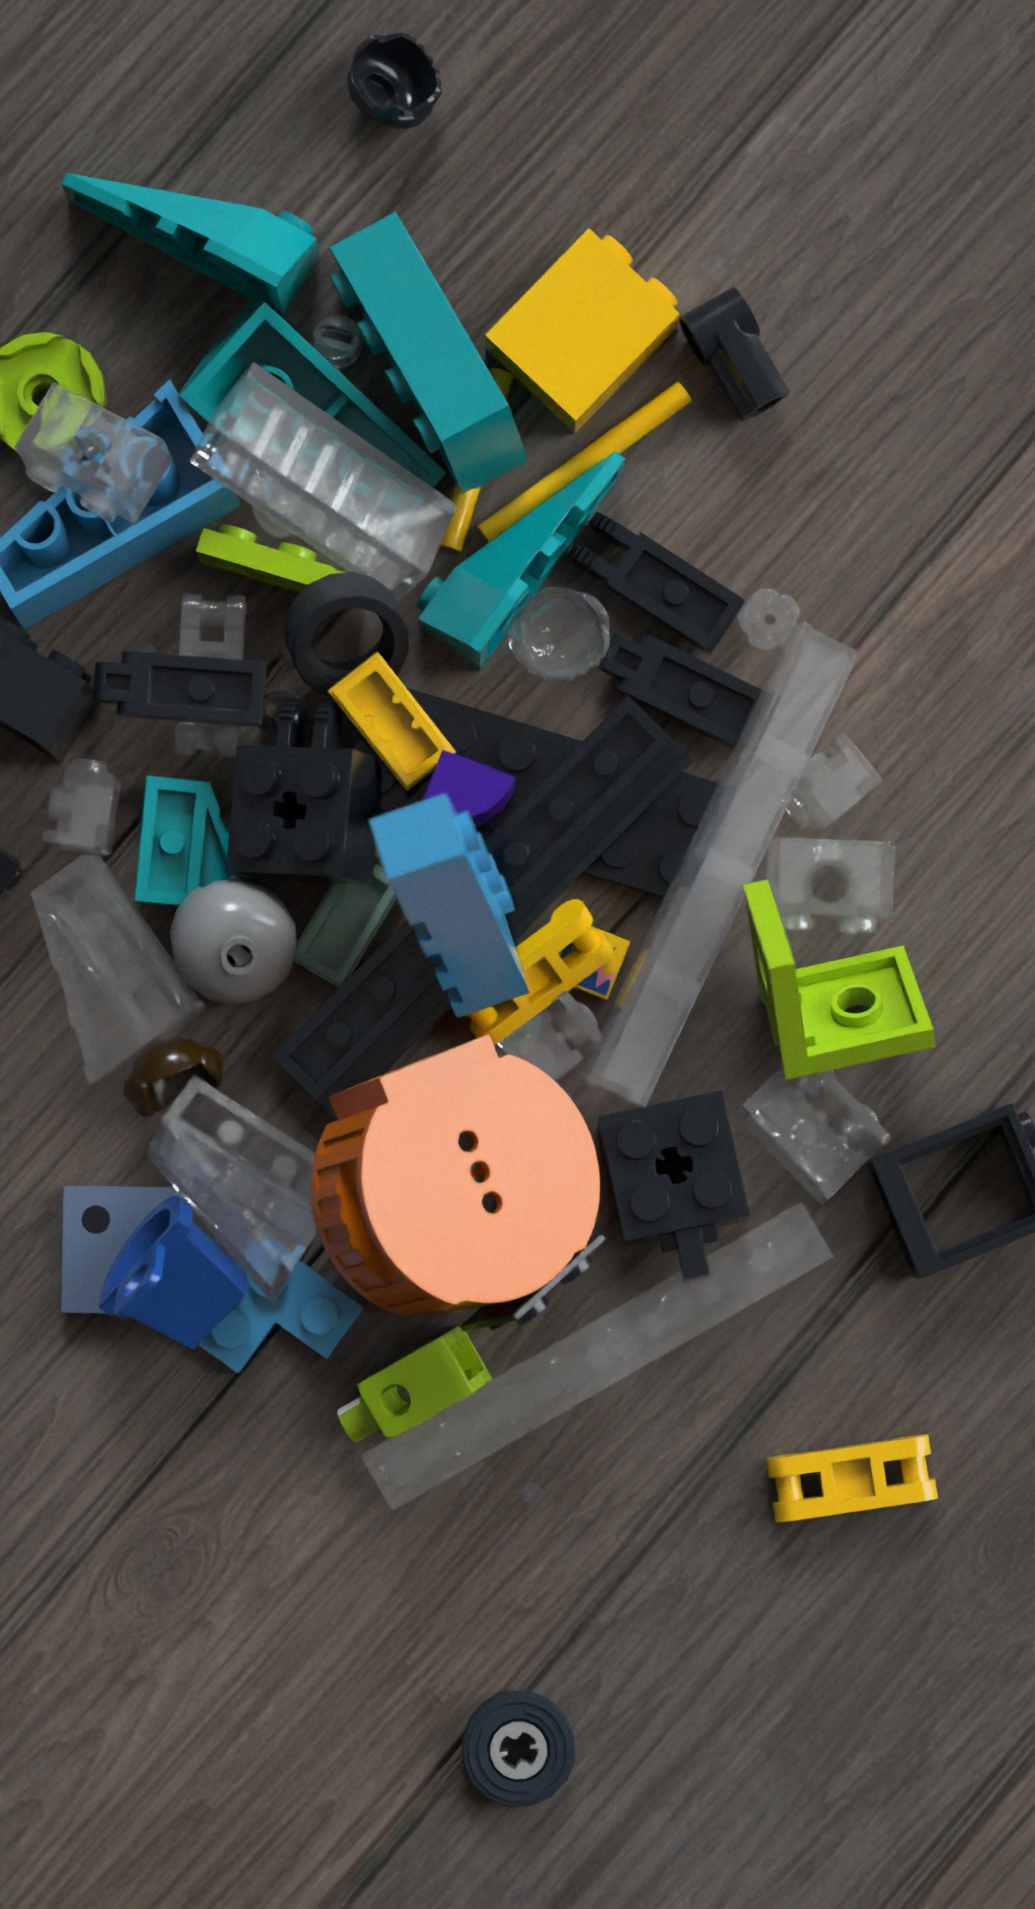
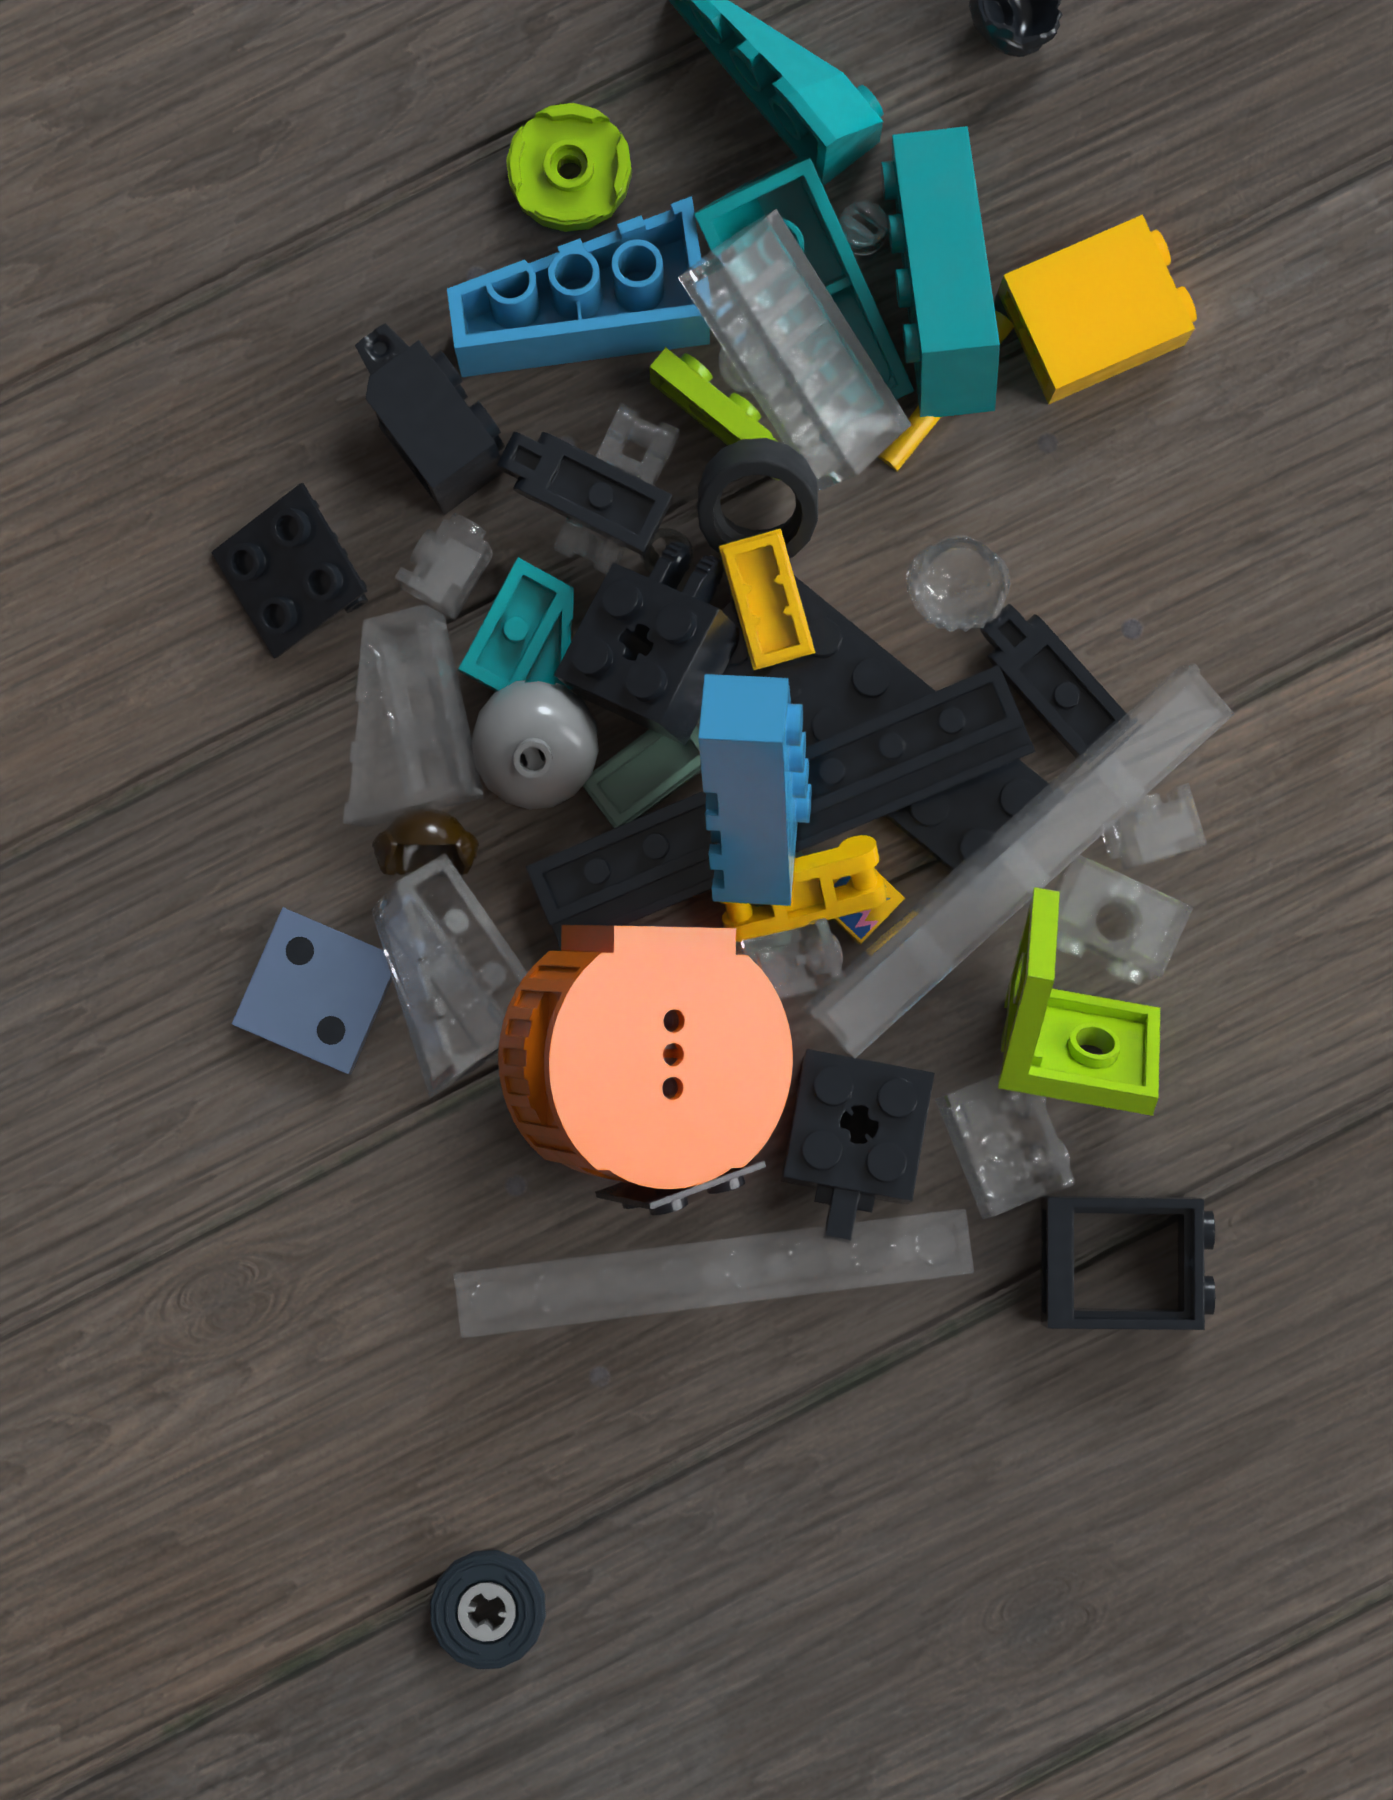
camera: 30 degrees right, 0 degrees up
(73, 427) = (578, 202): clear brick -> none
(173, 1276) = (347, 1034): blue container -> none
(306, 1308) = (398, 1099): dark azure plate -> none
(433, 1376) = (551, 1229): lime torso -> none
(471, 787) = (824, 693): dark purple brick -> none
(487, 590) = (904, 515): teal wedge -> none
(614, 440) = (1046, 435): yellow bar -> none
(661, 585) = (1072, 577): black hinge -> none
(727, 339) = (1229, 371): black piece -> none
(763, 603) = (1143, 647): clear plate -> none
(851, 1478) = (905, 1488): yellow plate -> none

